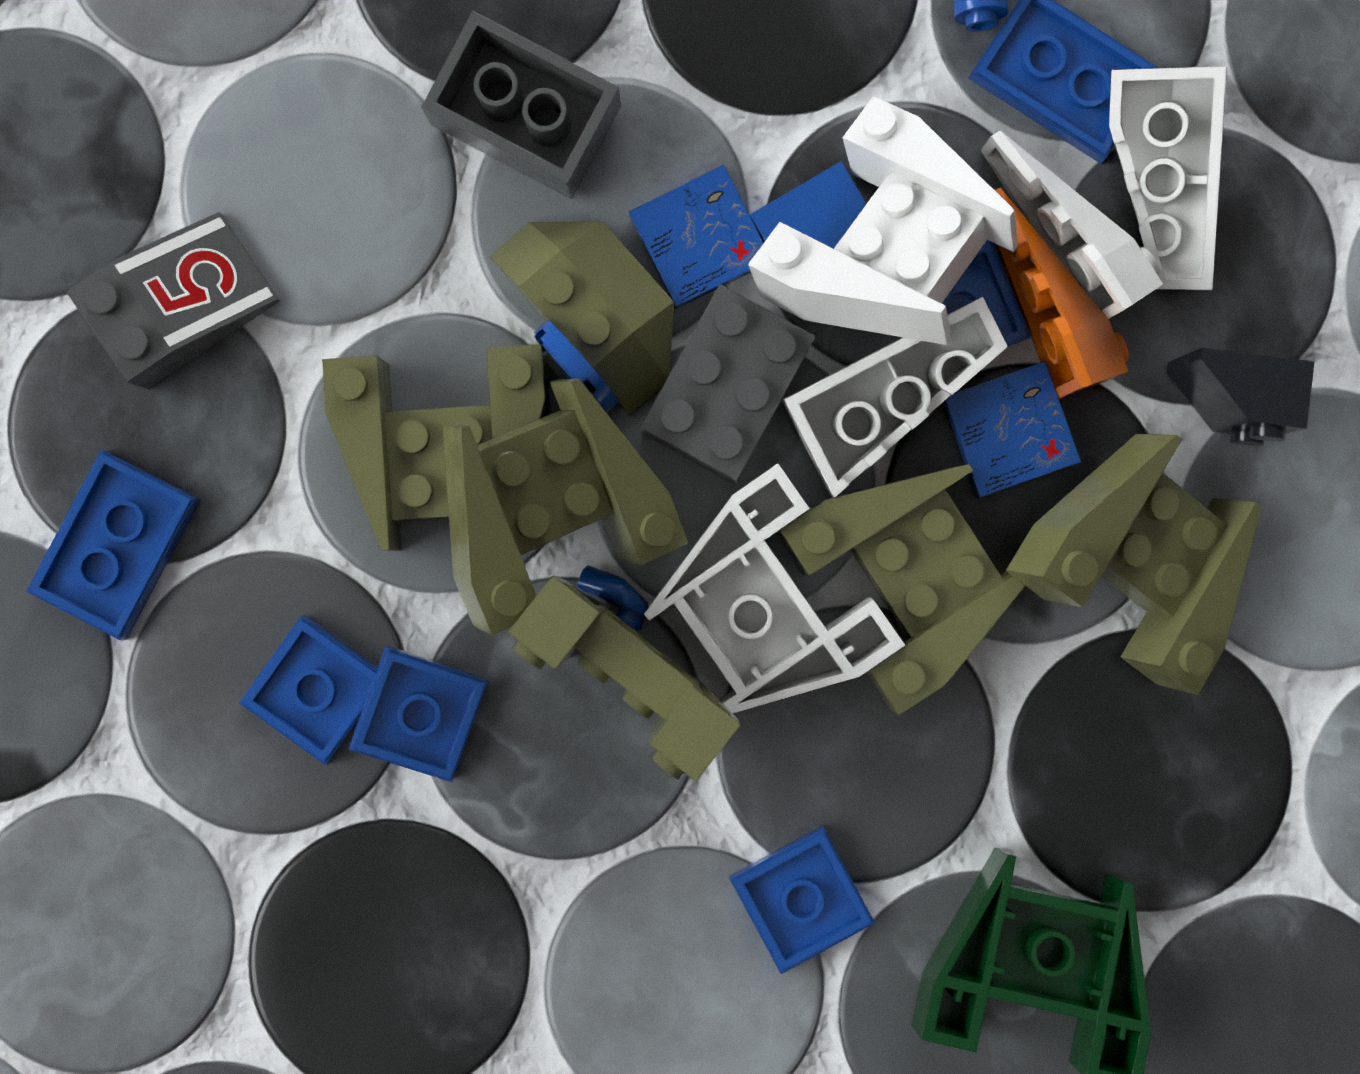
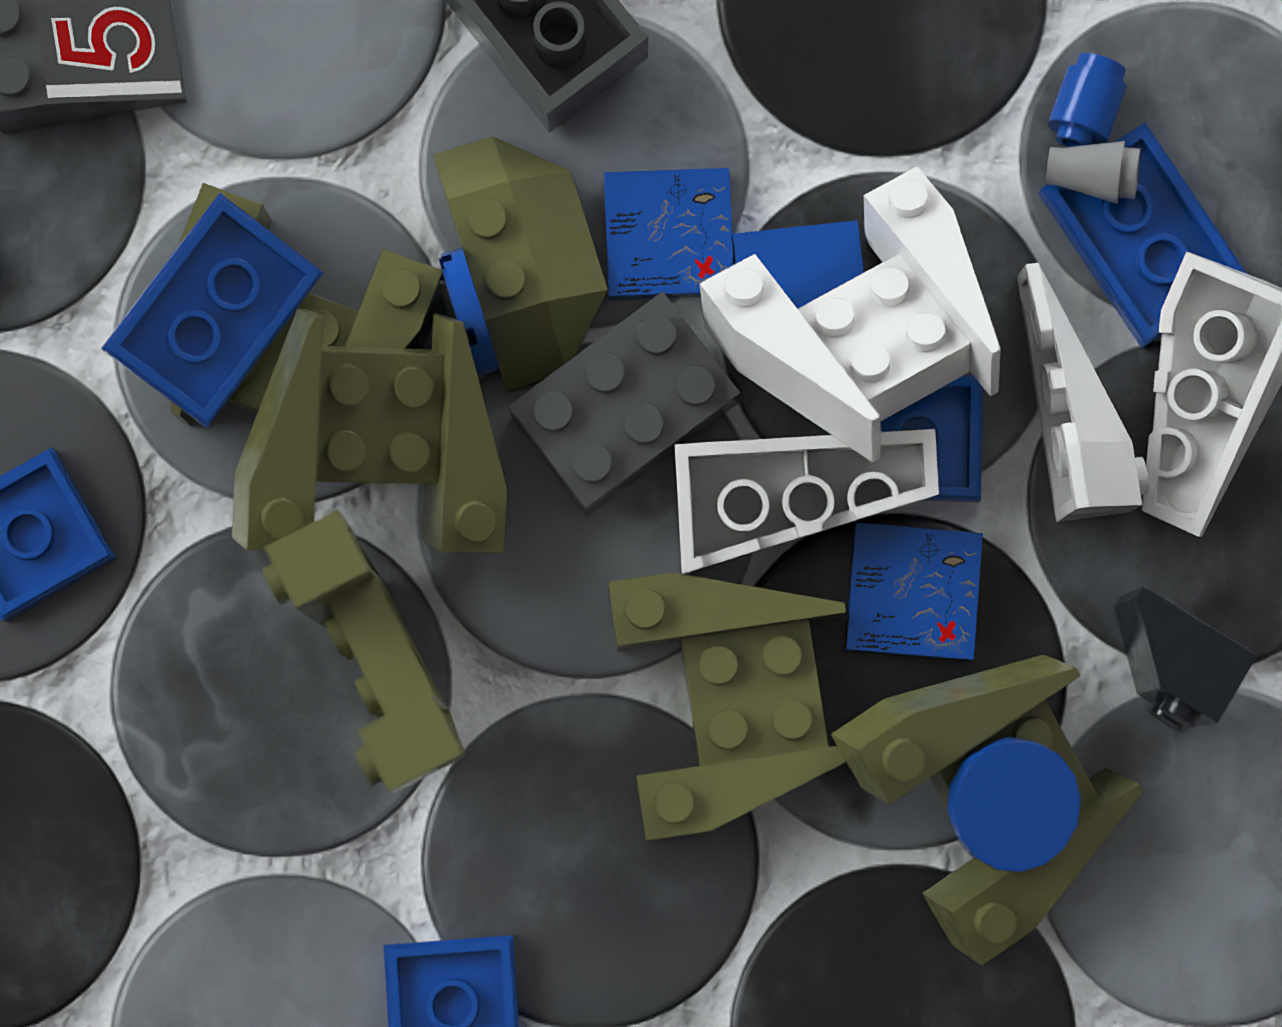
camera: 20 degrees right, 5 degrees down
(376, 456) = (212, 310): none -> blue tile
(418, 714) = (128, 610): blue tile -> none
(617, 591) = (404, 574): blue arm -> none
(755, 614) = (541, 660): white wedge -> none
(1012, 37) = (1097, 170): none -> light grey cone
(1060, 315) = (1021, 499): orange wedge -> none
(1174, 562) = (1014, 804): none -> blue tile

